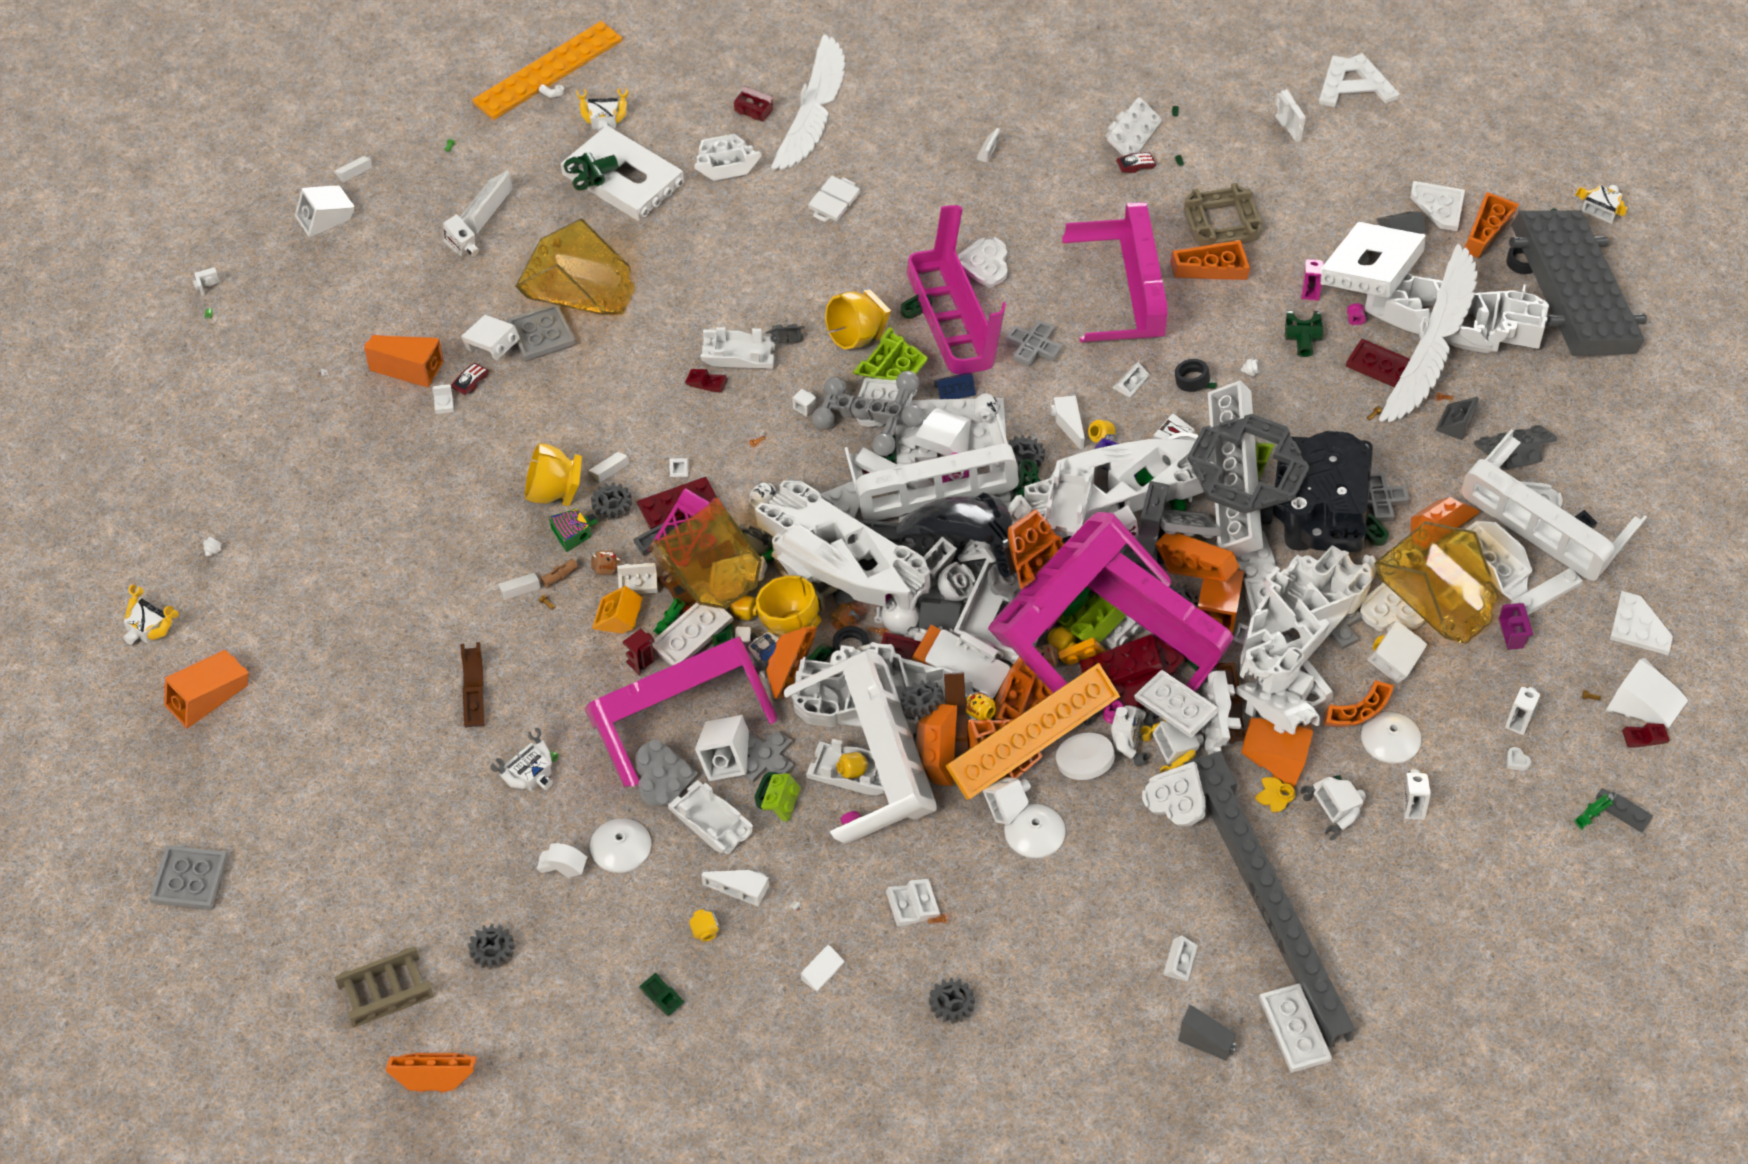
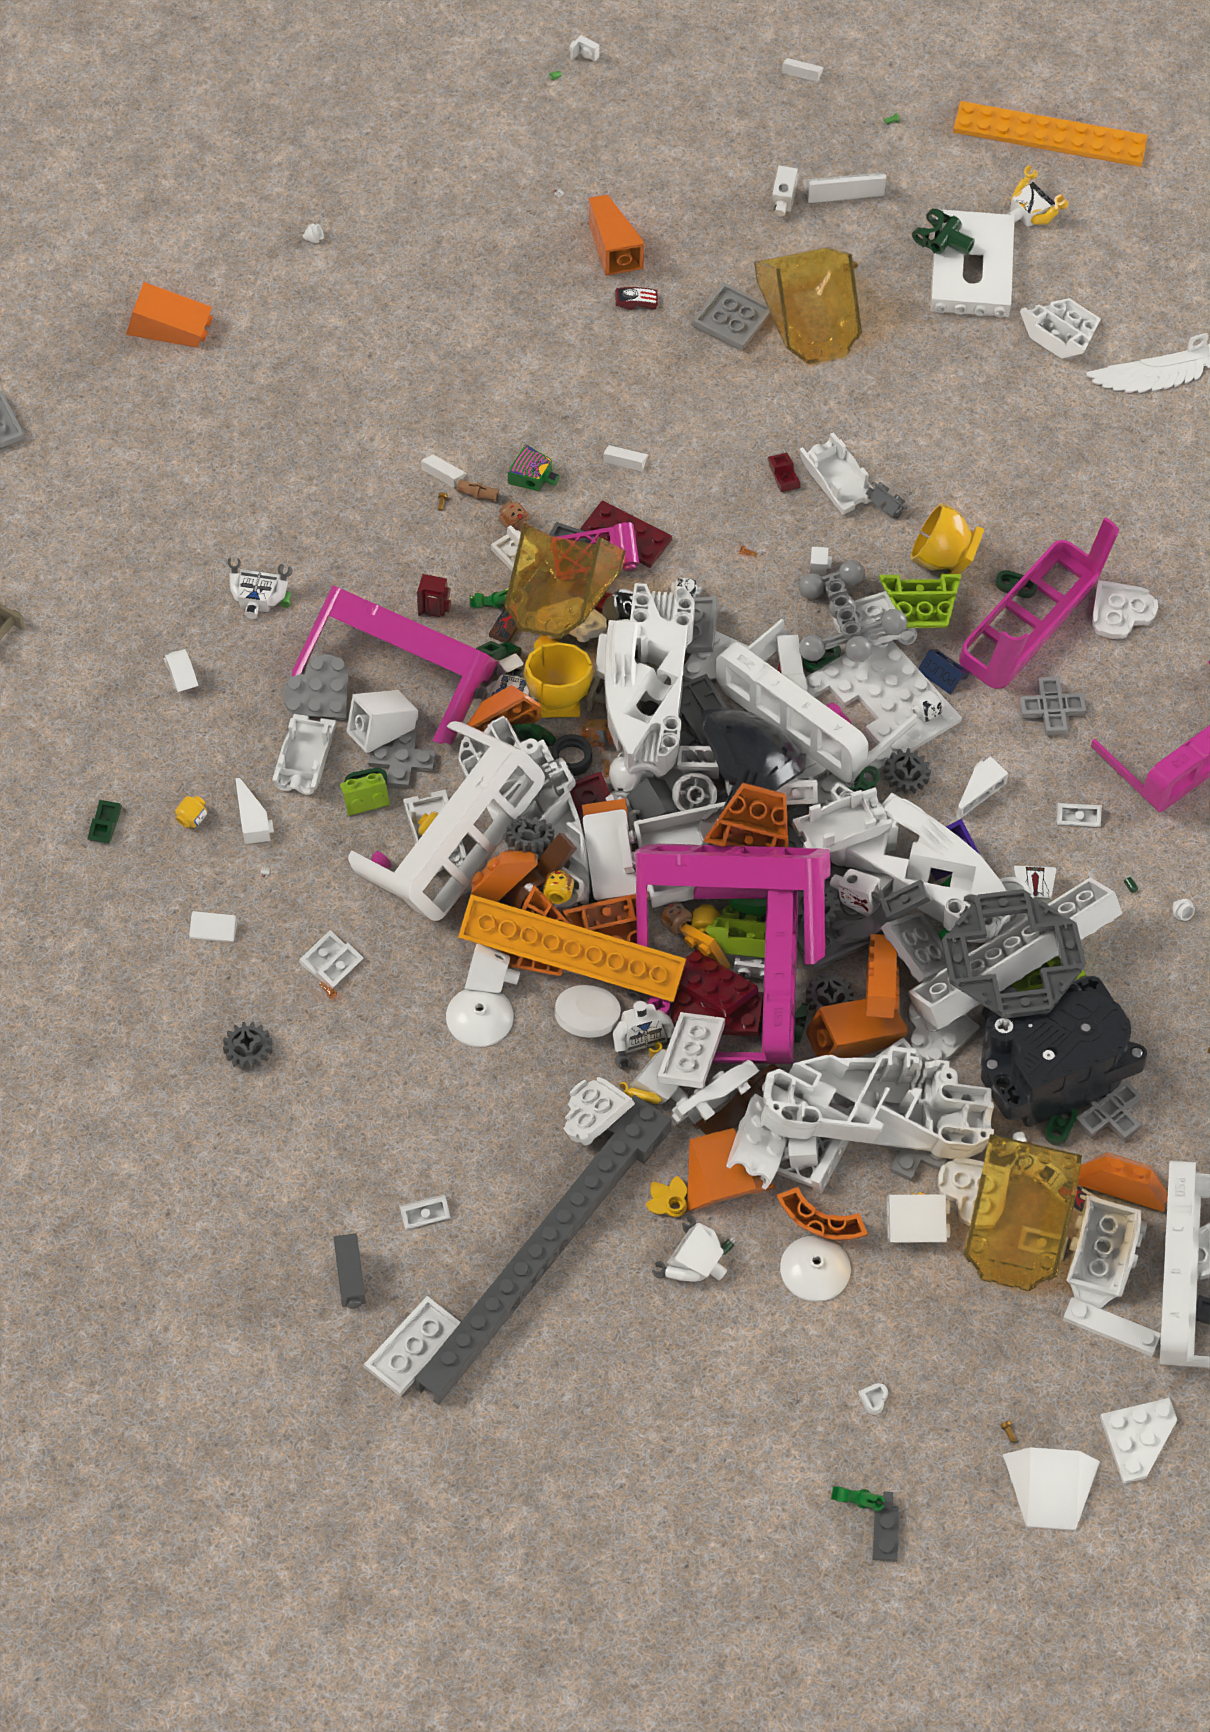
camera: 55 degrees right, 5 degrees up
(145, 619) = (203, 235): torso -> none
(322, 208) = (734, 76): white slope -> none
(443, 399) = (598, 293): white bracket -> none
(473, 686) = (303, 505): reddish brown piece -> none
(490, 950) = (64, 669): dark grey gear -> none
(491, 335) = (690, 282): white panel -> none
(551, 93) = (1024, 154): white arm -> none
(552, 475) = (567, 419): yellow plate -> none
(611, 500) = (577, 486): dark grey gear -> none
(618, 611) = (469, 558): light orange slope -> none
(622, 854) = (236, 713): white dish -> none
(679, 467) = (667, 510): white slope -> none
(690, 633) = (482, 624): white plate -> none
(753, 109) = (1150, 324): dark red window -> none
(834, 198) = (1082, 446): white piece -> none
(940, 433) = (869, 690): white wedge -> none
(1101, 429) = (985, 820): yellow head -> none
(1192, 384) = (1123, 872): black tyre -> none
(1416, 785) = (754, 1319): white torso -> none
(1515, 625) = (1035, 1313): magenta window -> none
(1526, 701) = (935, 1370): white torso -> none
(1648, 735) = (996, 1507): dark red slope -> none

